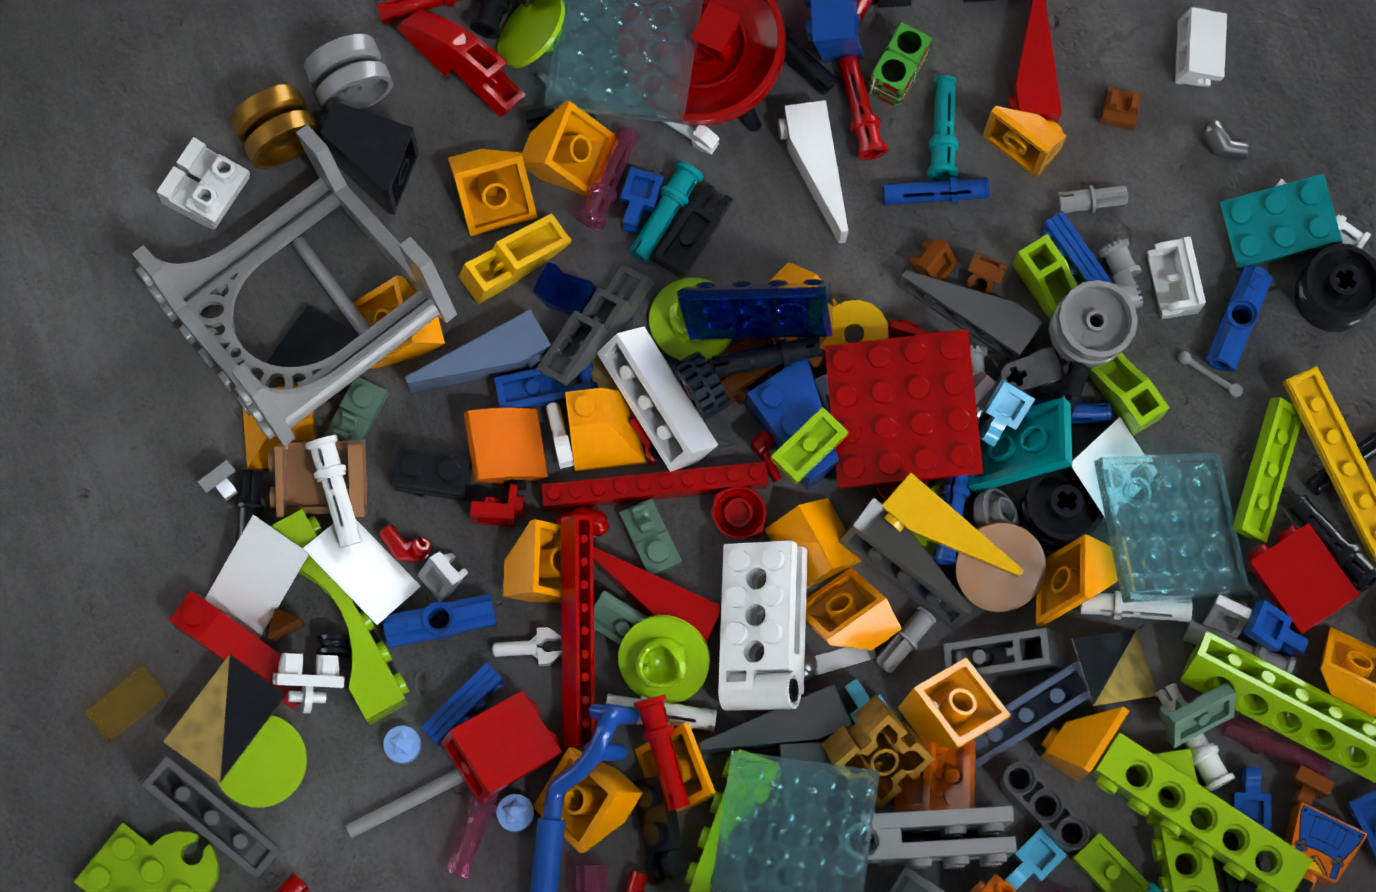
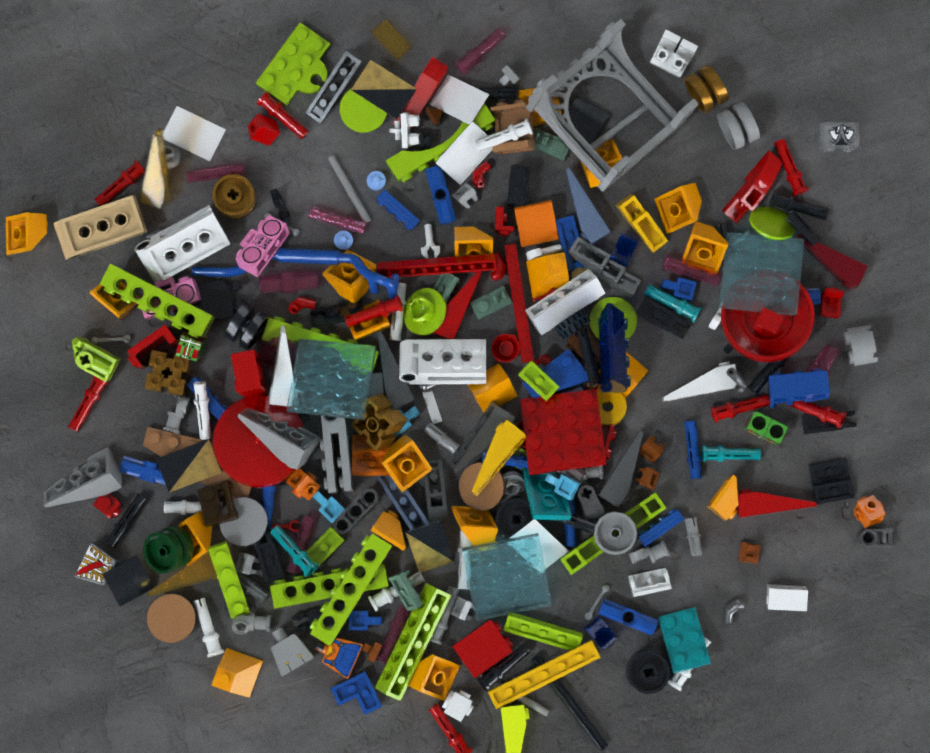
camera: 90 degrees right, 10 degrees up
(173, 547) = (473, 56): none -> clear pink pin
(371, 151) = (694, 142): black slope -> none
(501, 746) = (375, 230): red panel -> none
(815, 98) = (741, 384): none -> flat silver arm
(851, 613) = (453, 407): light orange slope -> none
(1270, 366) = (601, 633): none -> clear blue bracket
(1271, 630) = (453, 630): blue plate -> none

